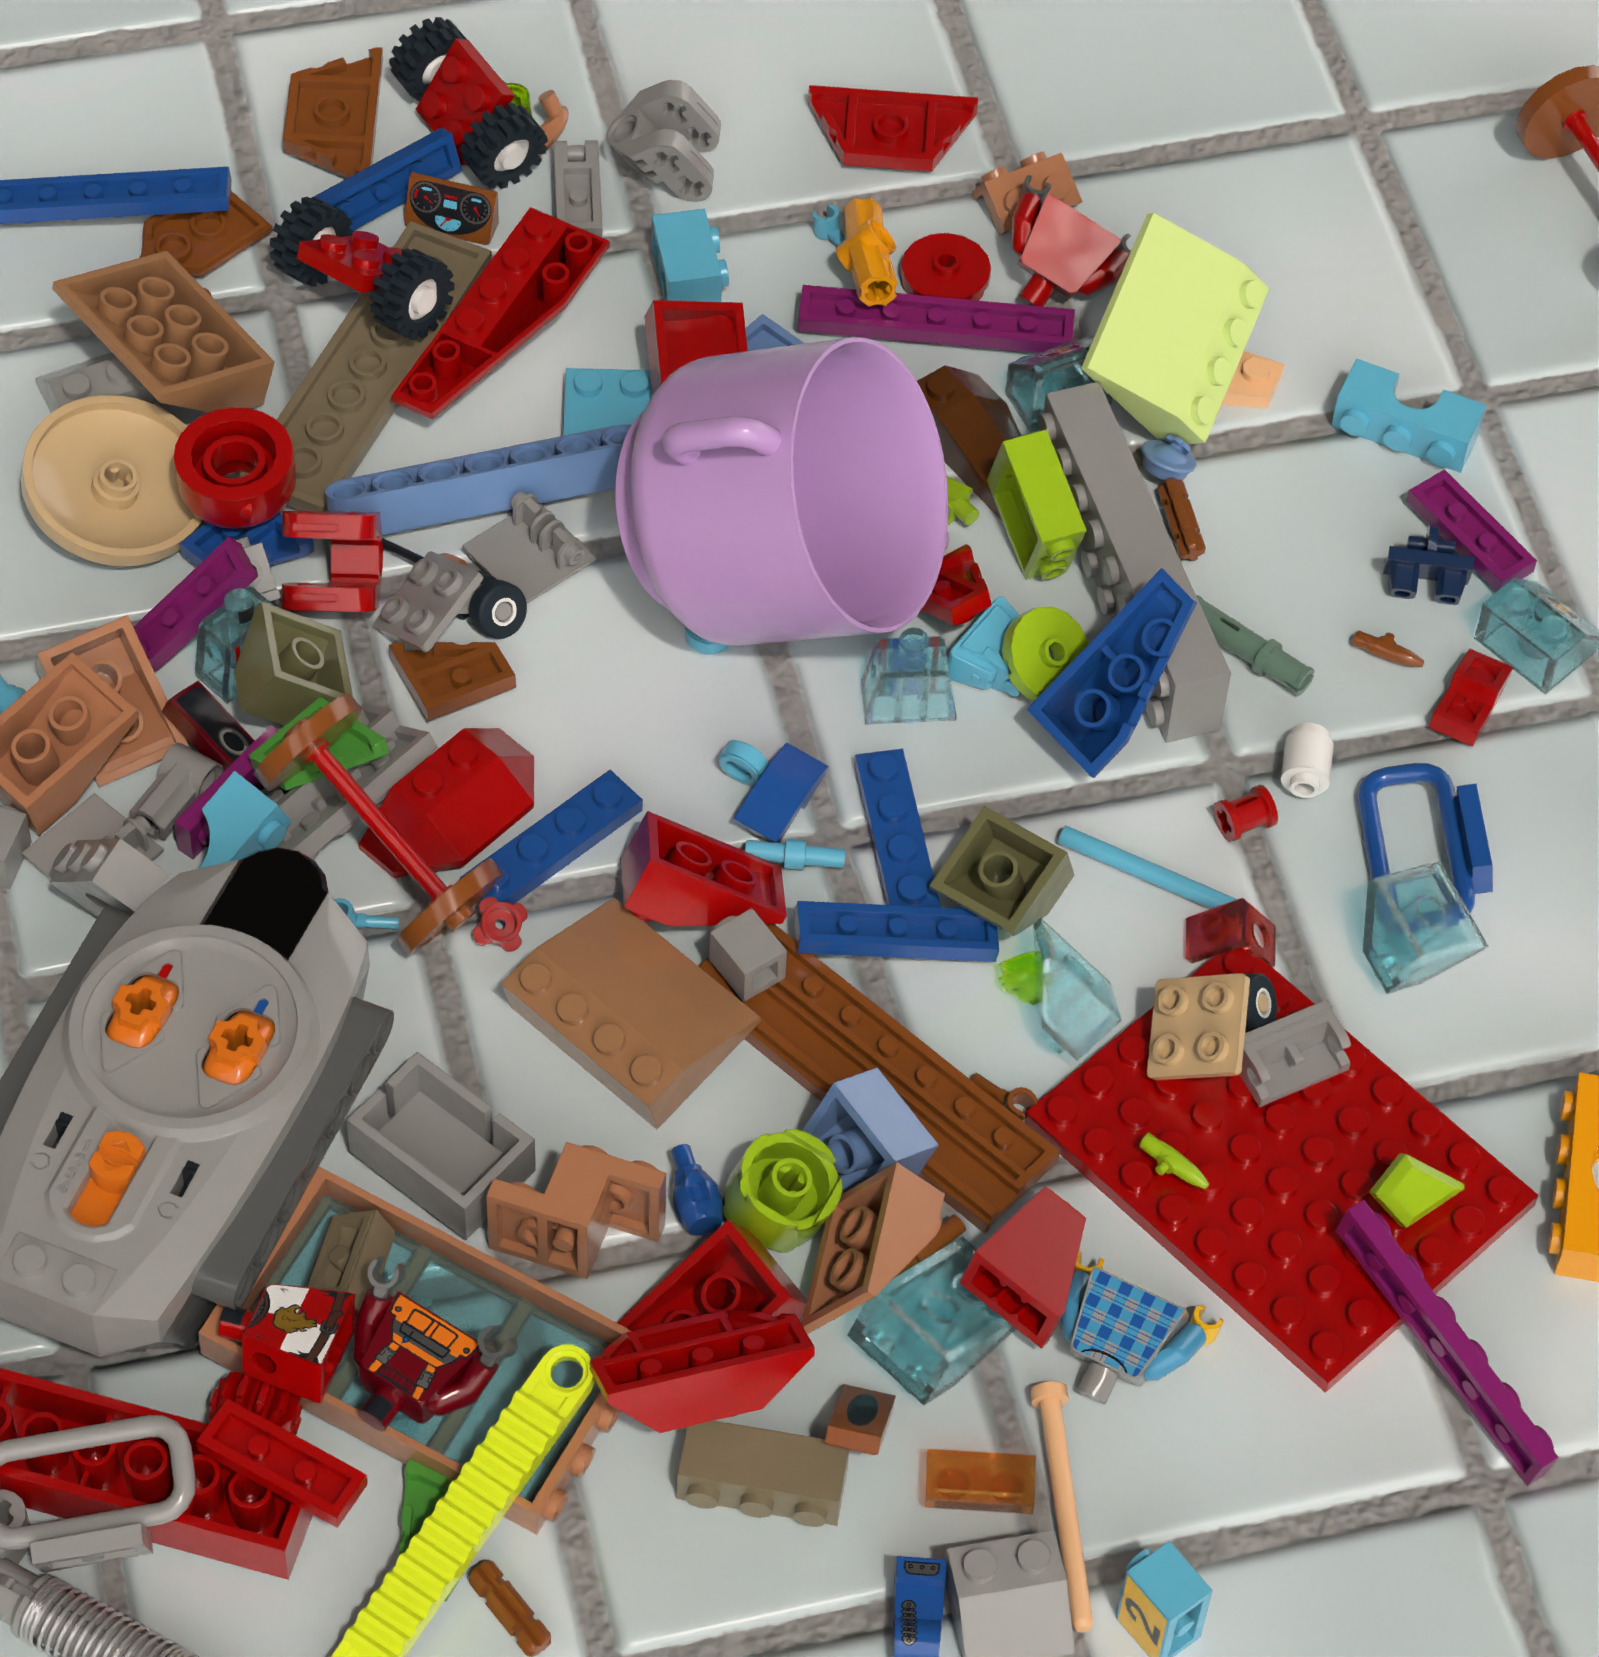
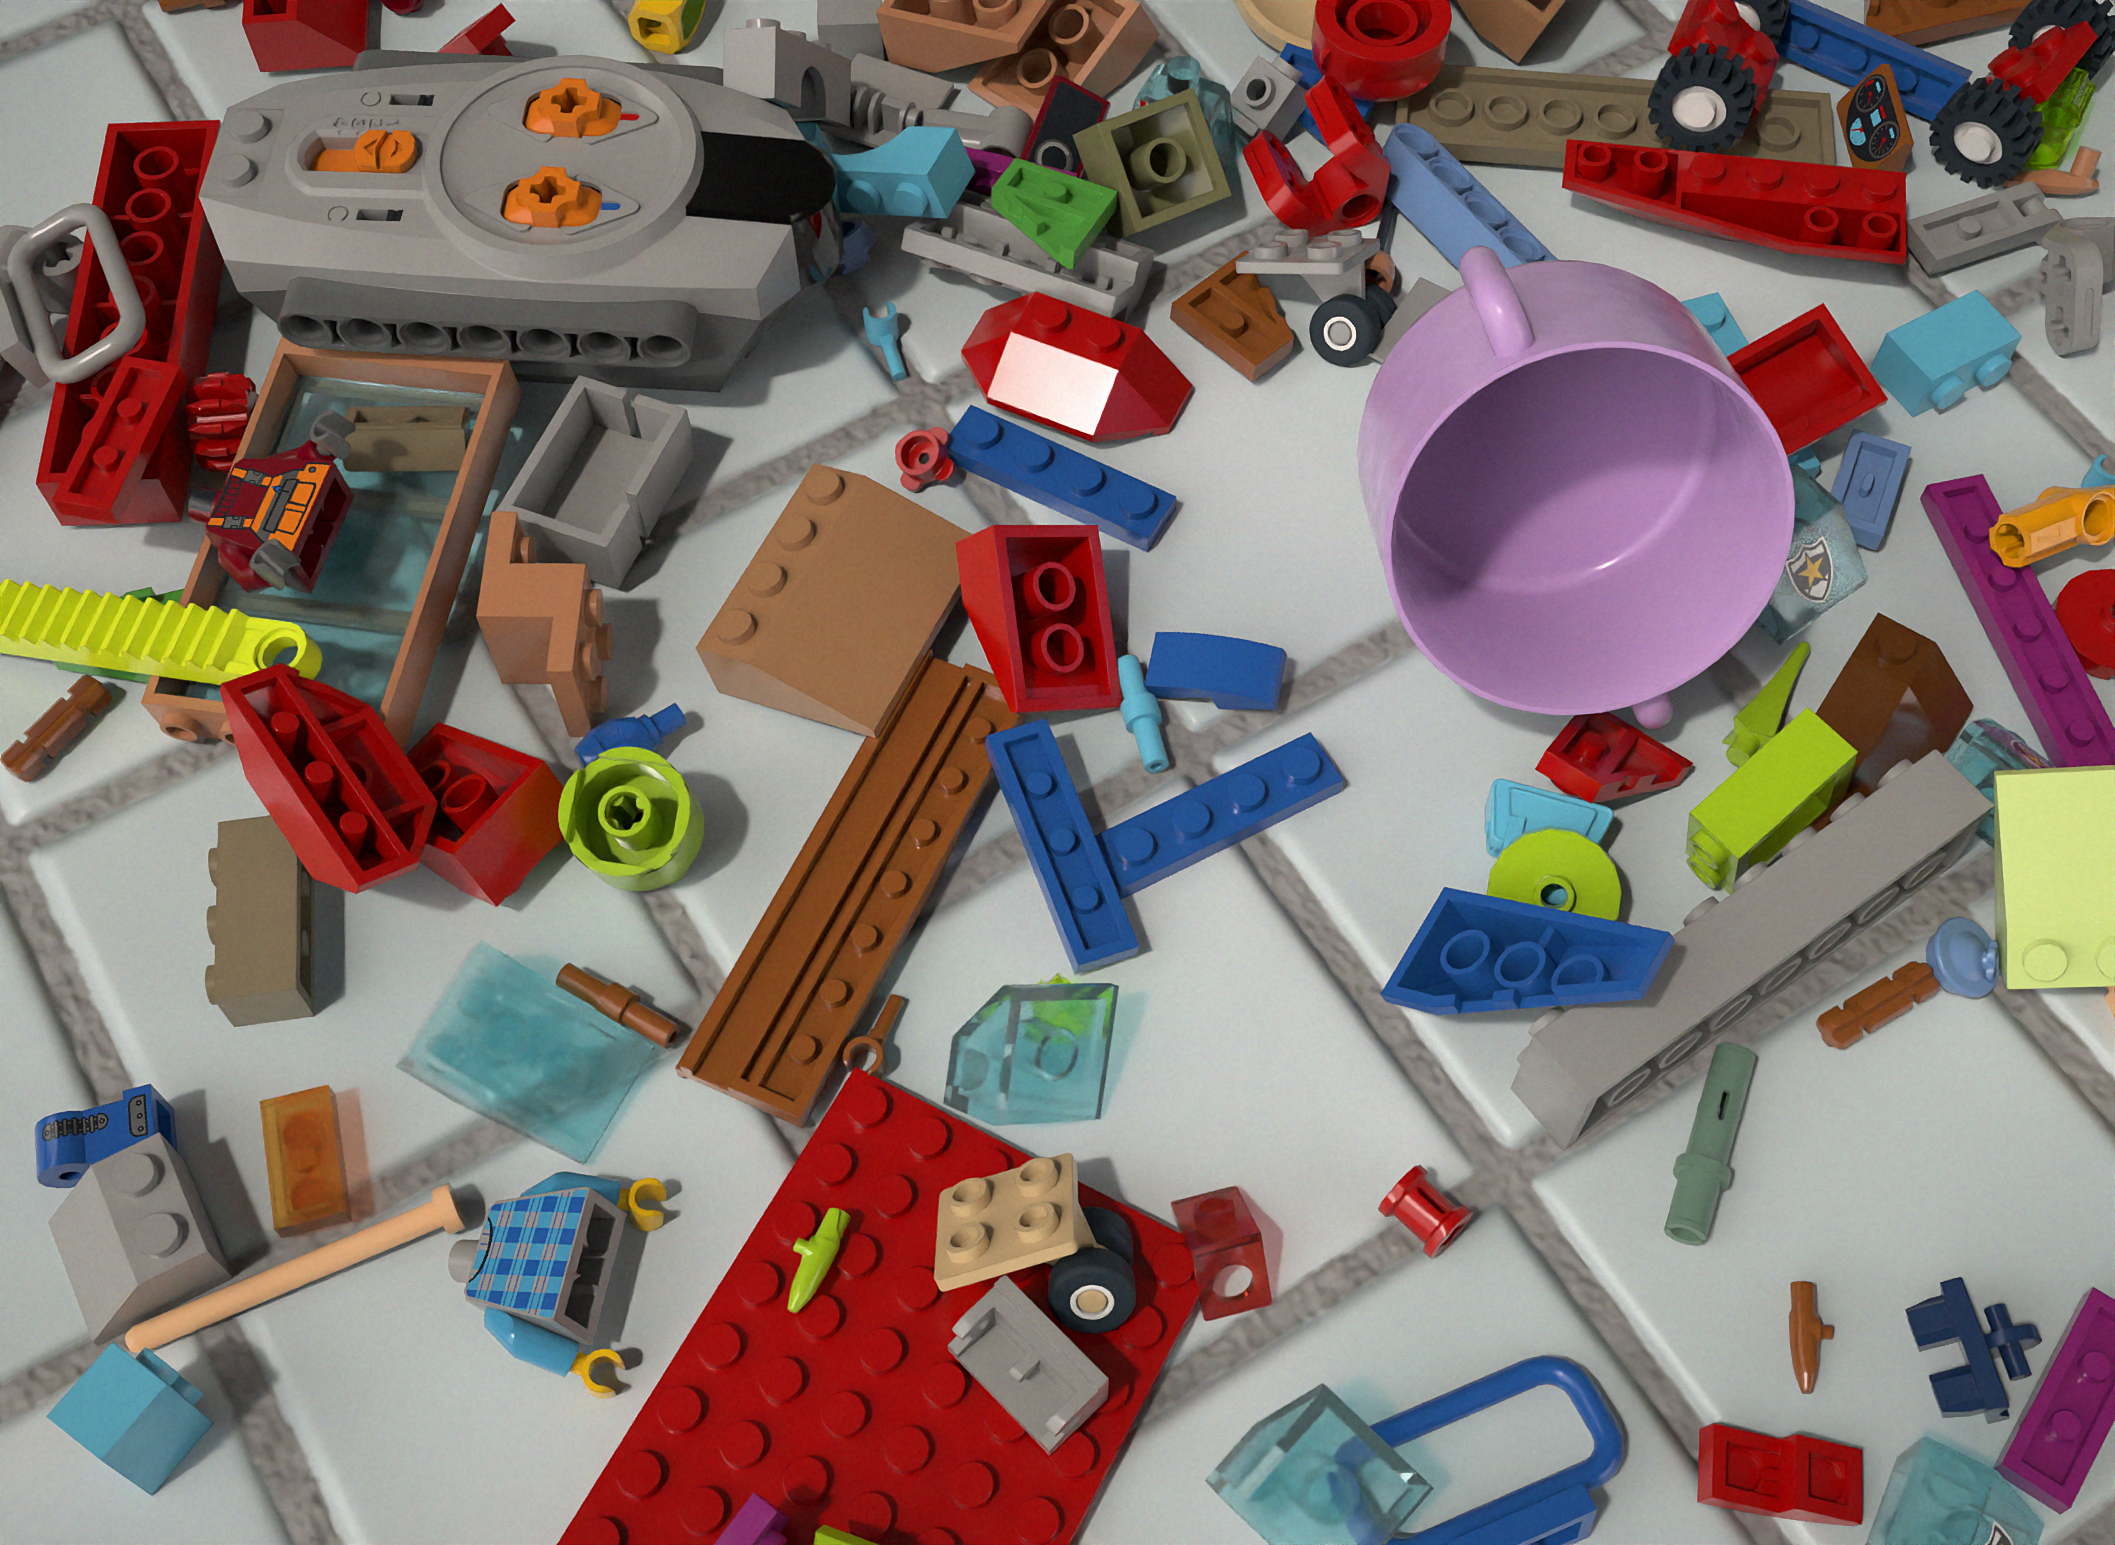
camera: 75 degrees right, 5 degrees up
(198, 595) = (1220, 61): magenta plate -> none
(293, 1337) = (263, 397): torso -> none
(309, 743) = (998, 164): dark orange piece -> none
(742, 762) = (1241, 614): medium azure tile -> none
(747, 954) = (944, 686): light grey brick -> none
(860, 1419) = (343, 995): dark orange tile -> none
(869, 1129) = (731, 890): medium blue slope -> none
(870, 1241) = (564, 930): nougat slope -> none
(908, 680) = (1436, 742): clear light blue torso -> none
(1004, 873) = (1183, 936): olive slope -> none
(1029, 1265) = (611, 1124): red slope -> none
(1142, 868) = (1287, 1125): medium azure bar -> none
(1307, 760) = (1548, 1269): white brick -> none

